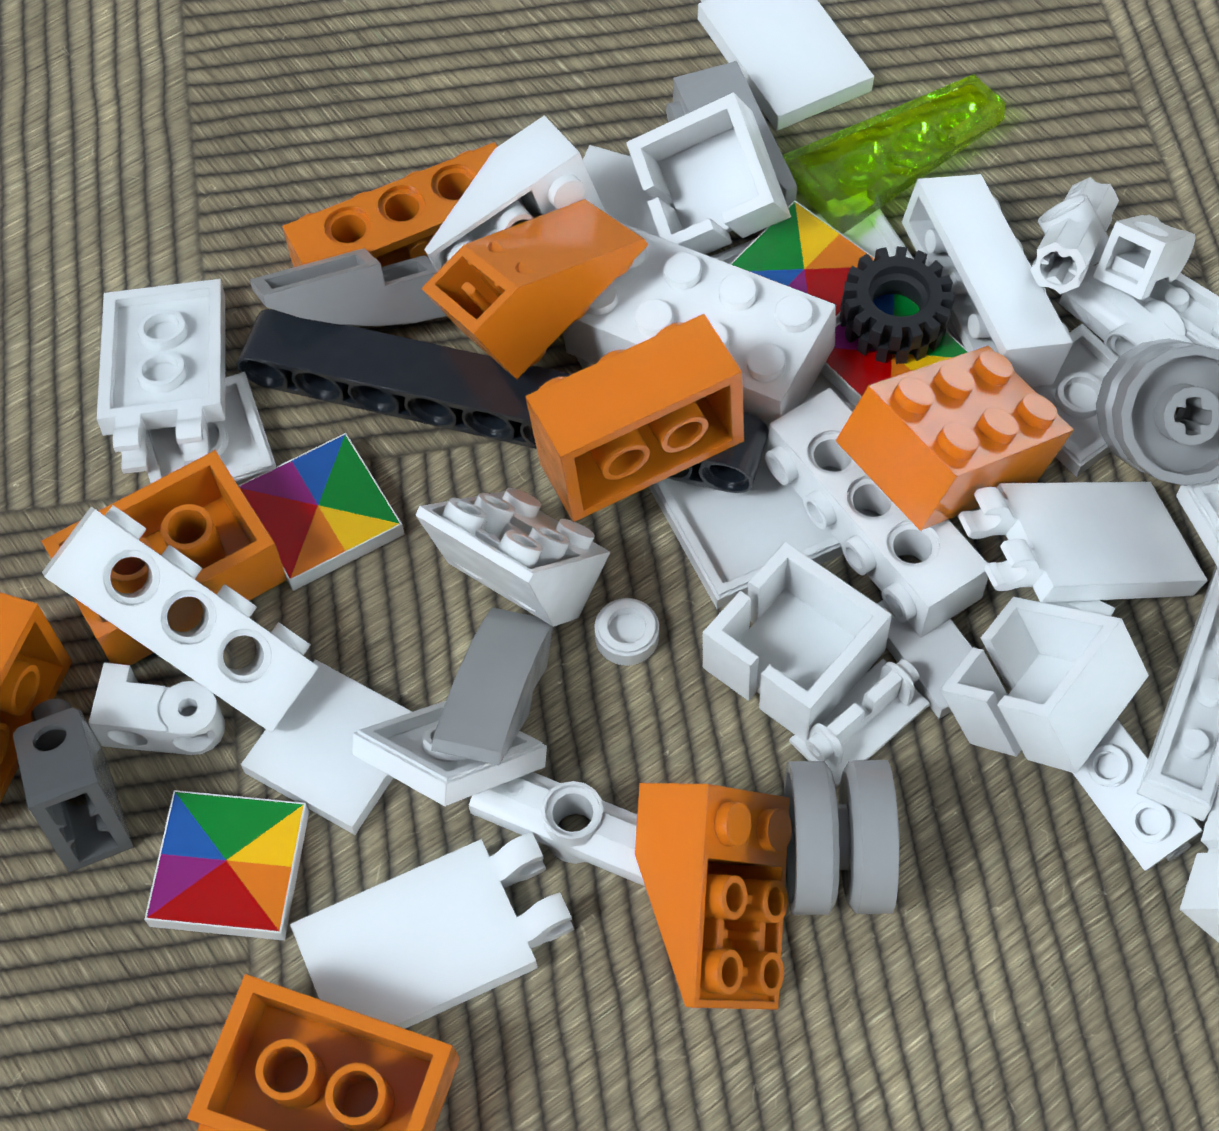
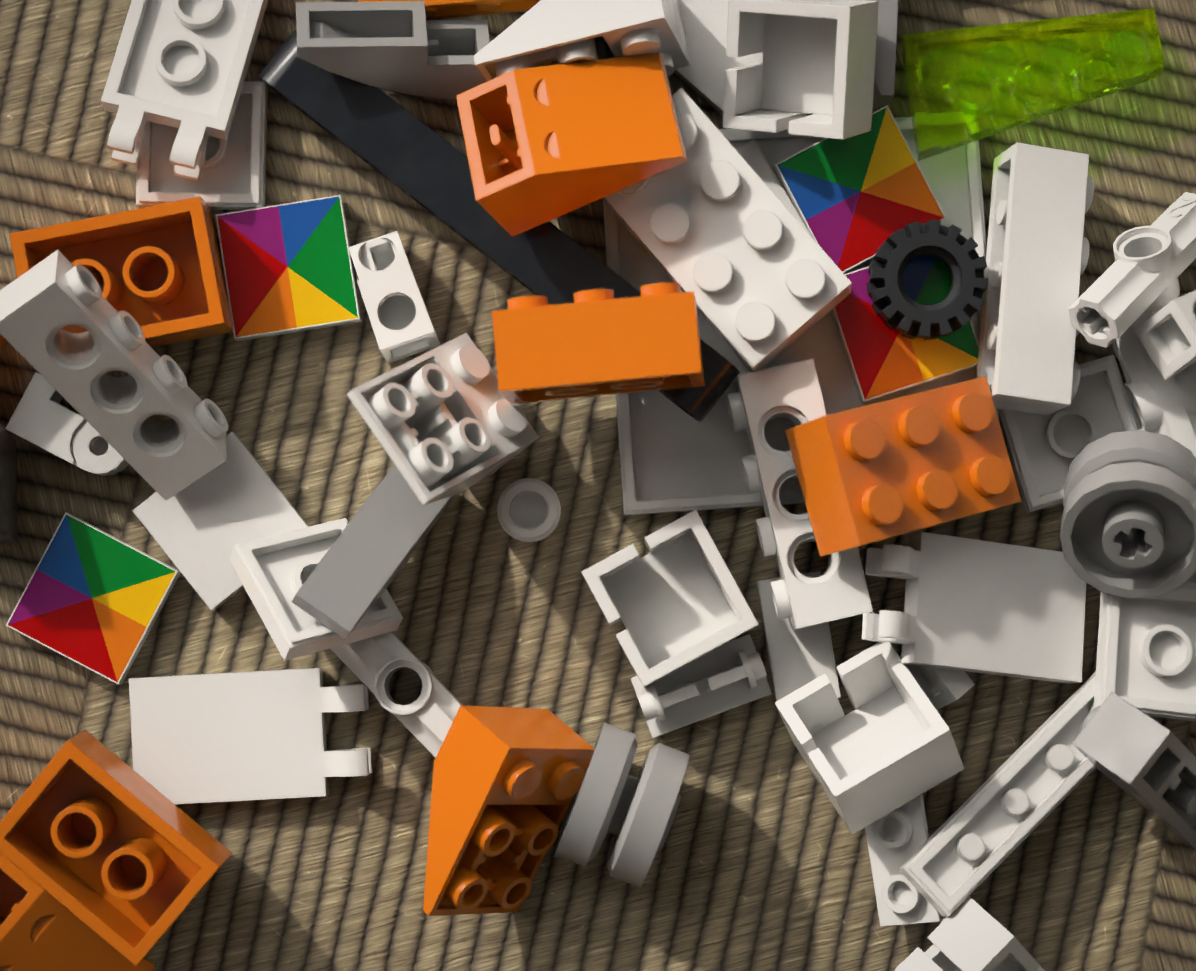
camera: 20 degrees right, 25 degrees up
(415, 478) = (393, 298): none -> white leg

